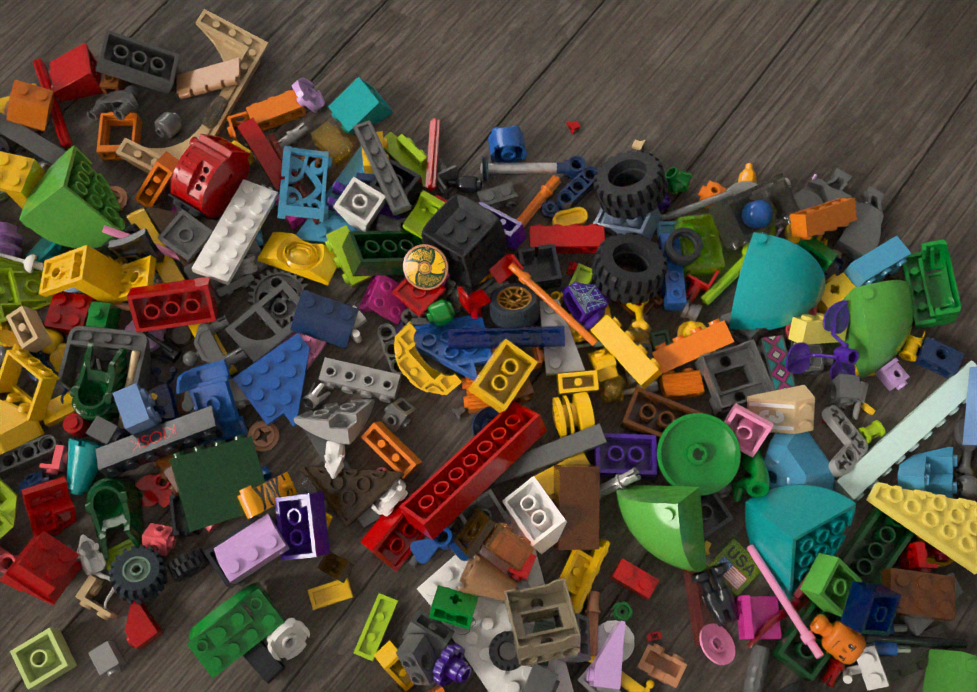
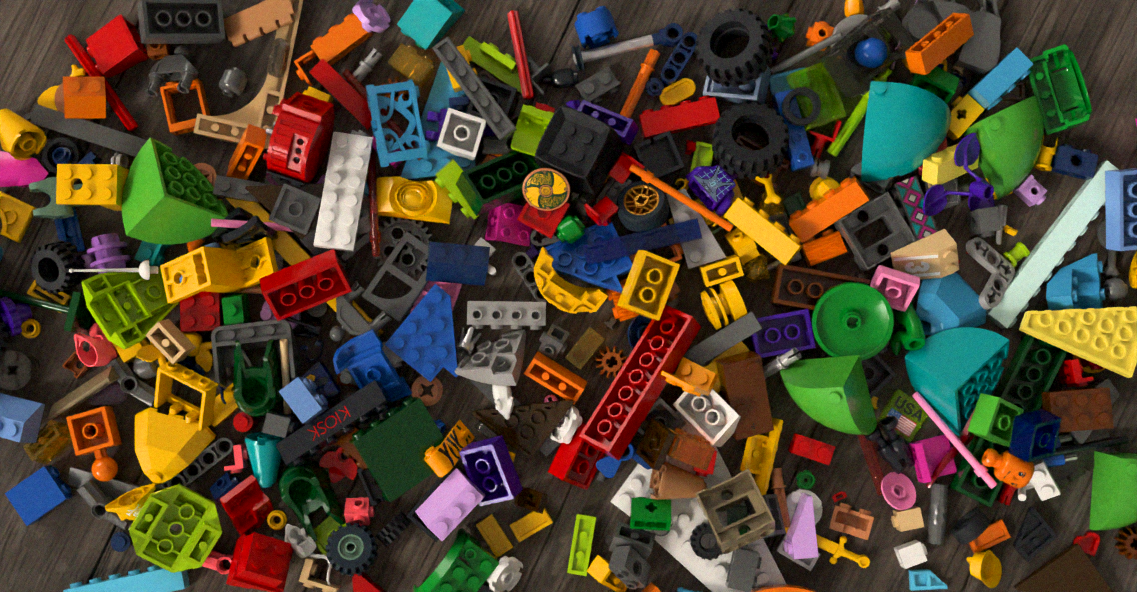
camera: 10 degrees left, 15 degrees up
(71, 528) = (271, 522): none -> yellow plate
(136, 210) = (235, 188): none -> dark grey plate
(253, 274) = (374, 235): none -> clear red bar
(289, 597) = (494, 535): none -> yellow tile
(427, 427) = (584, 348): none -> clear yellow brick
(448, 441) = (607, 356): none -> dark orange gear
(451, 666) = (661, 566): dark purple plant -> none
(526, 474) = (692, 378): none -> light orange bracket
(722, 676) = (907, 519): none -> tan brick

